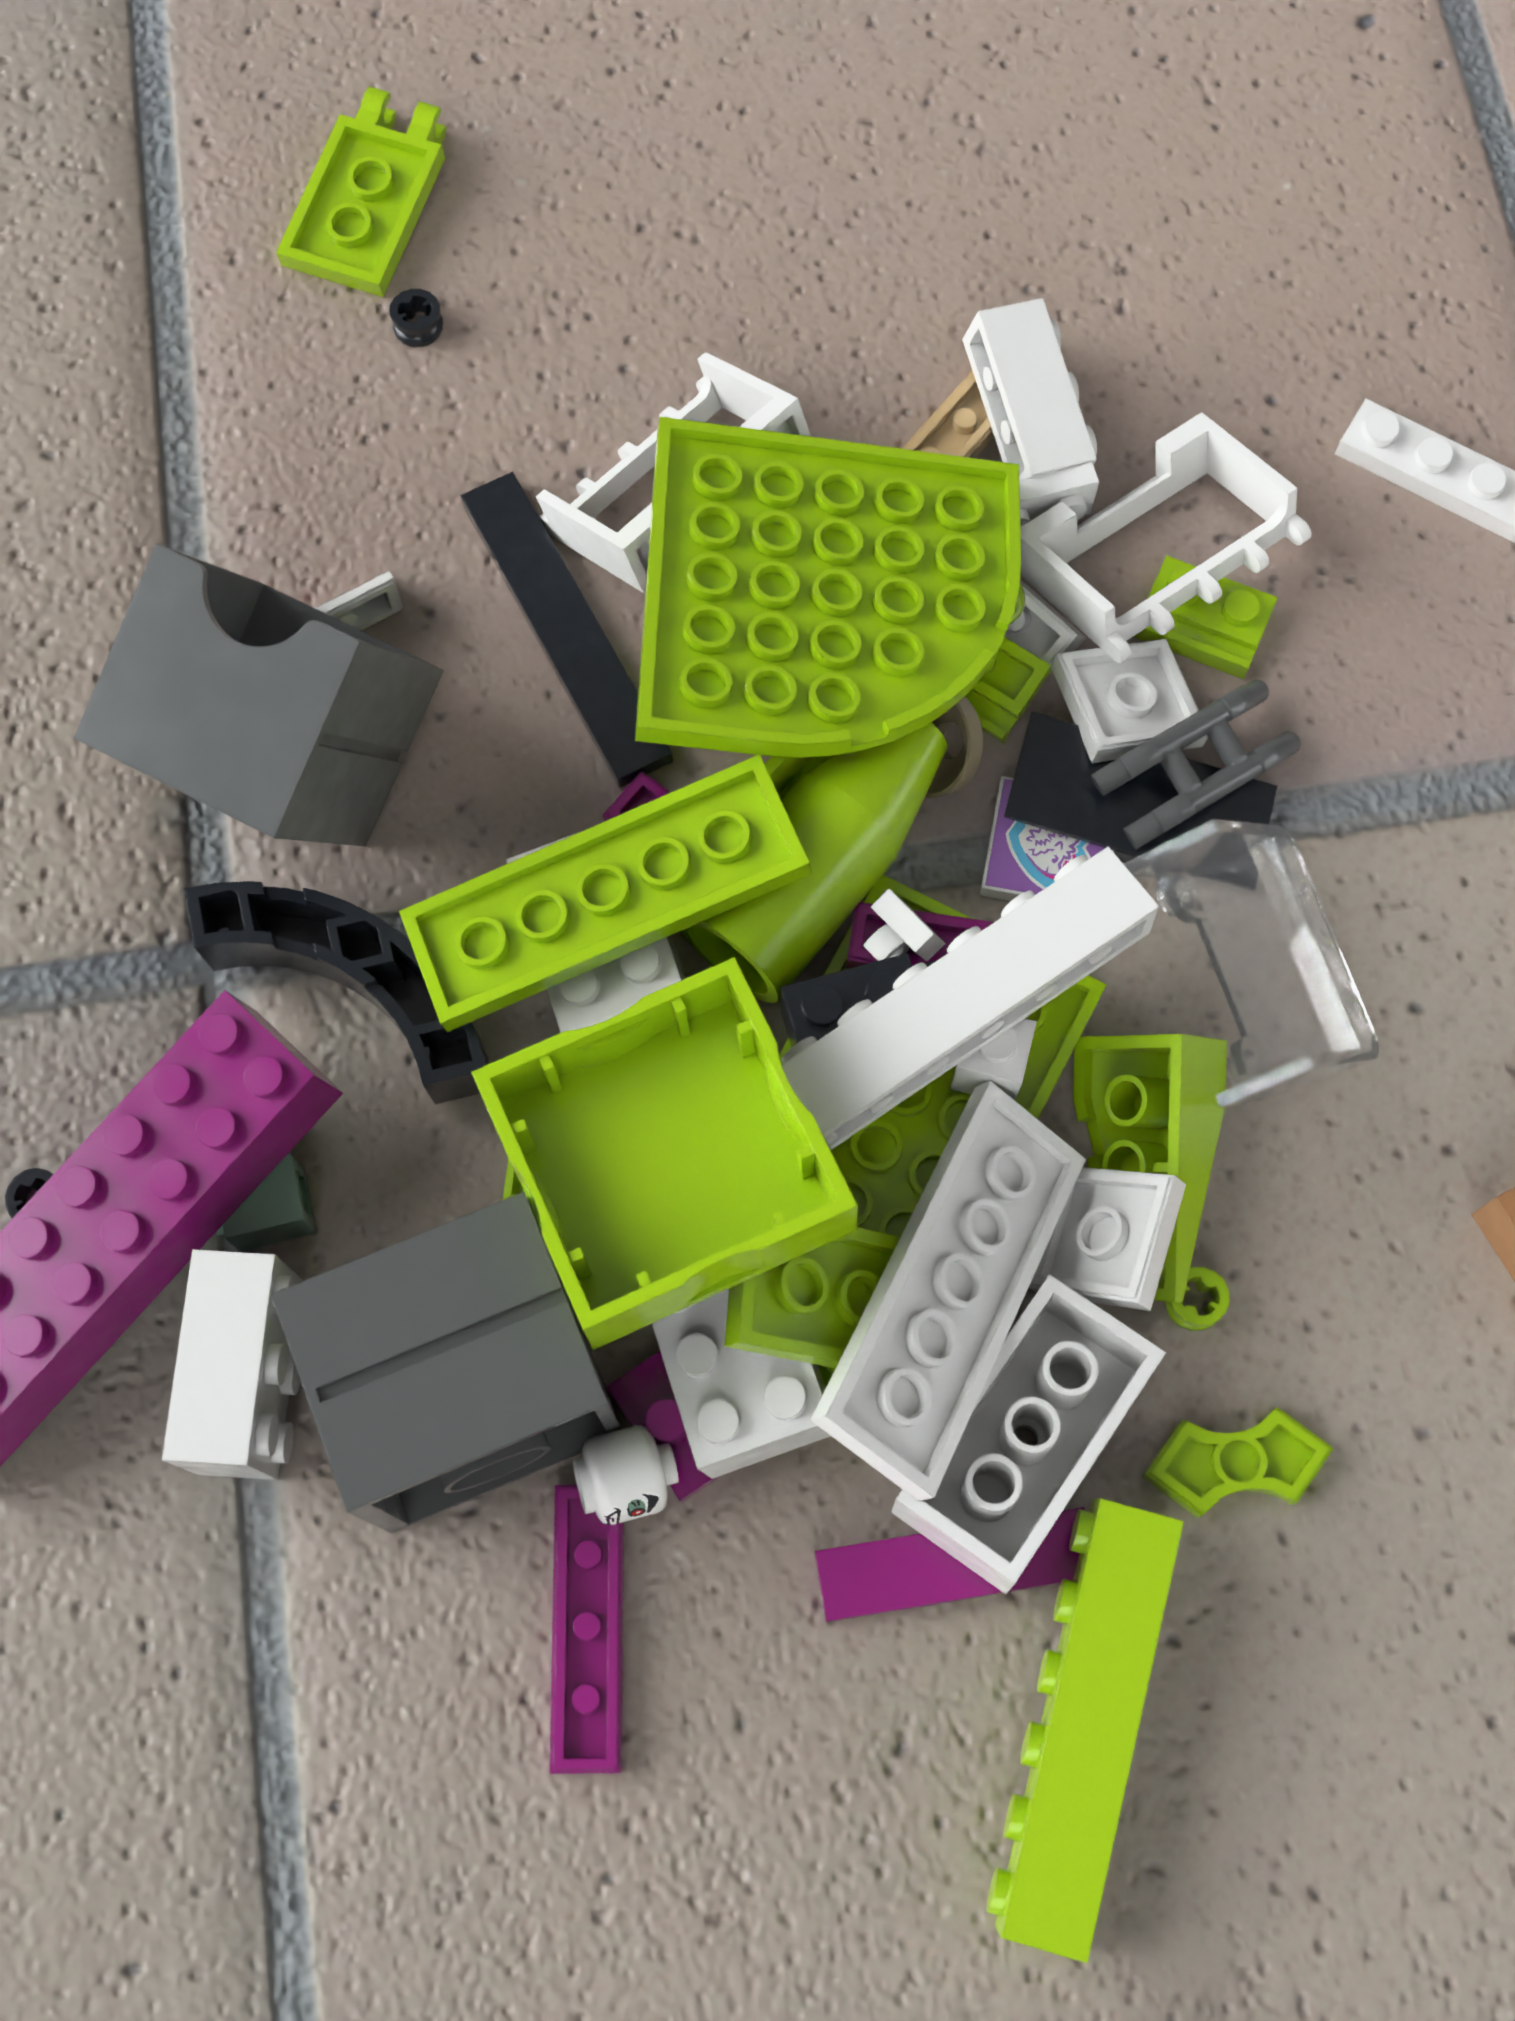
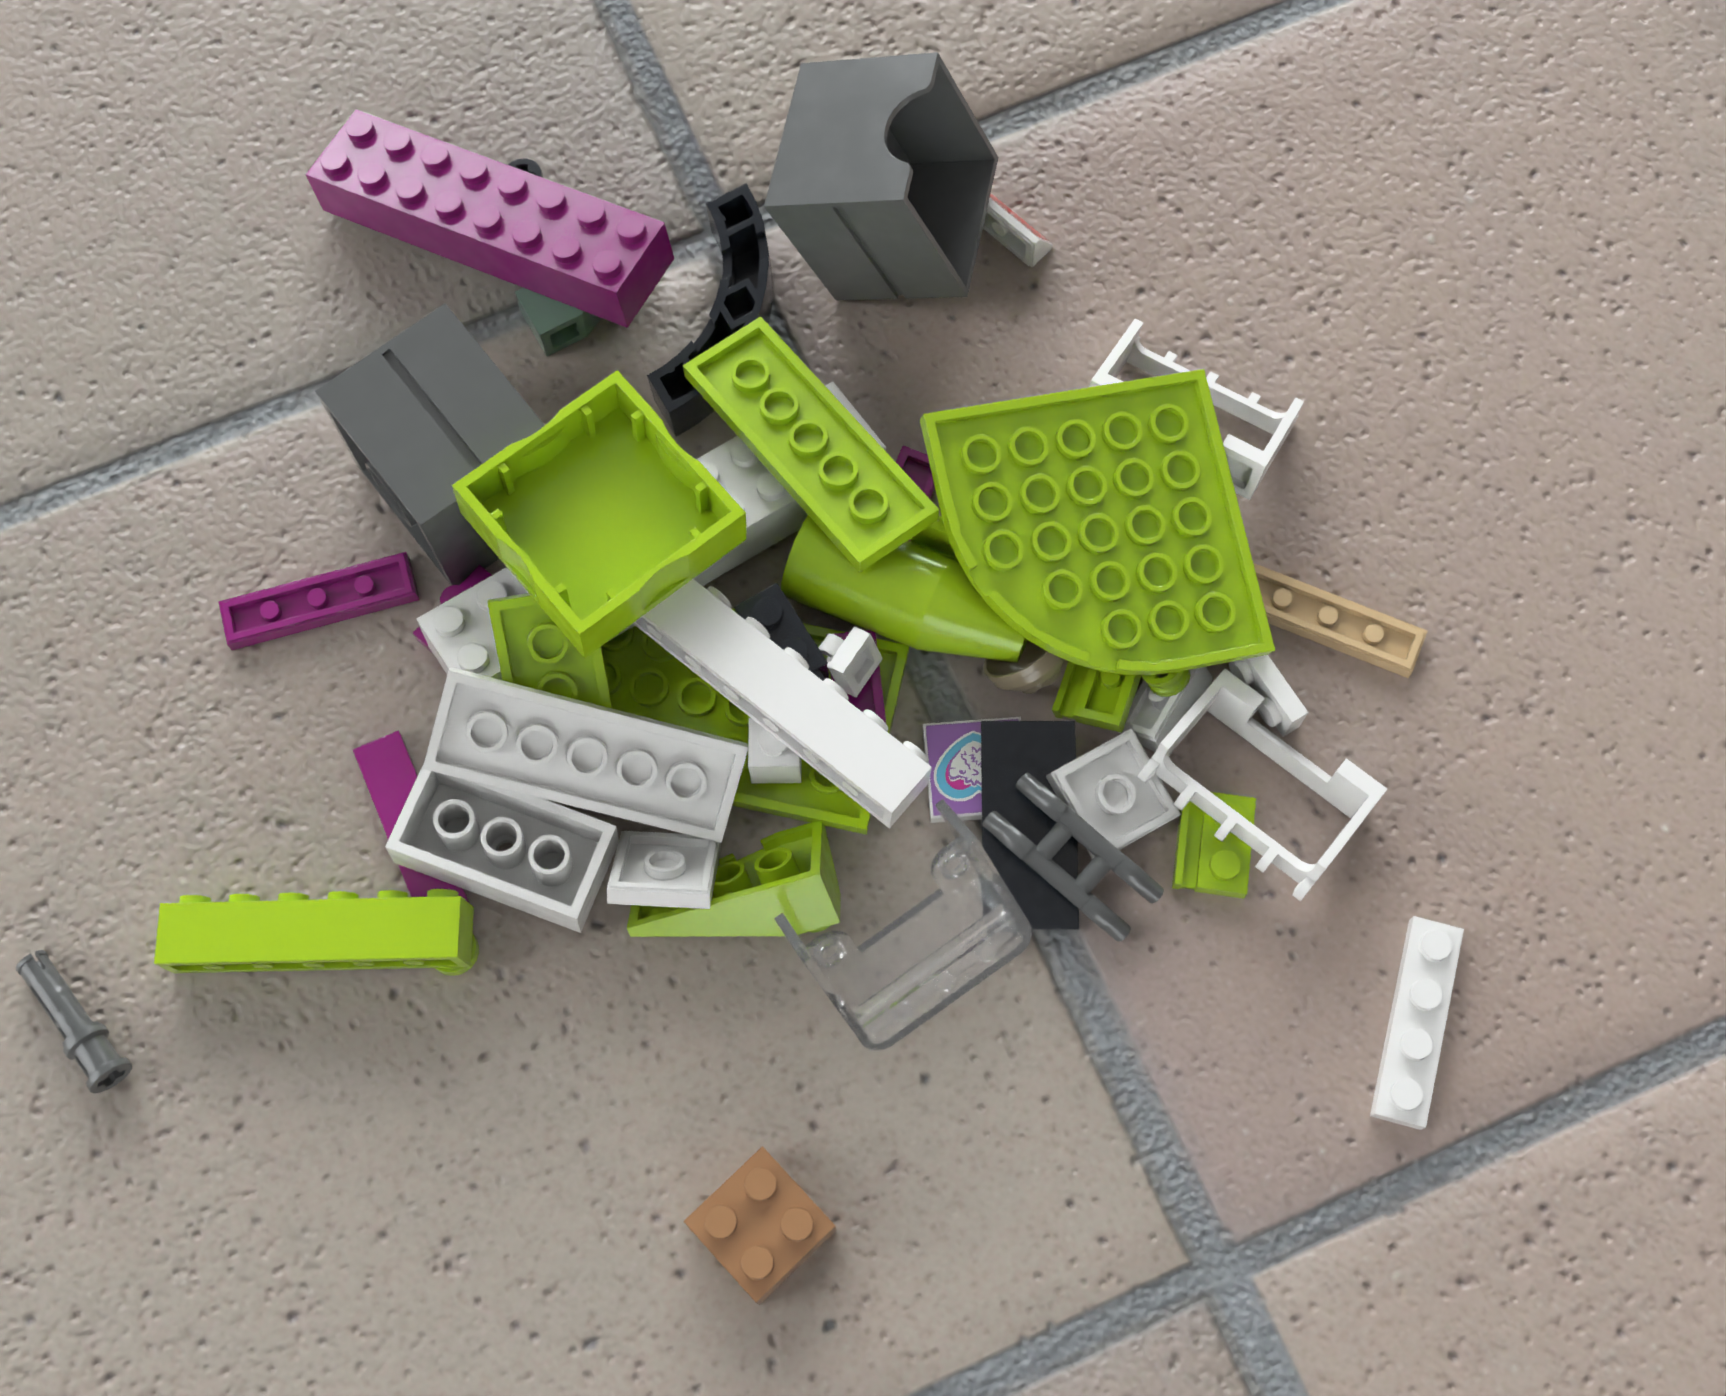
camera: 75 degrees right, 0 degrees up
(232, 1369) = (391, 308): white brick -> none
(365, 196) = (1371, 132): lime tile -> none
(426, 328) = (1266, 208): black bush -> none
(563, 626) = (1083, 344): black tile -> none
(624, 1475) = (412, 584): white head -> none
(1028, 389) = (1358, 653): white brick -> none
(1204, 1465) = (536, 1032): lime tile -> none
(1206, 1281) = (658, 956): lime bush -> none

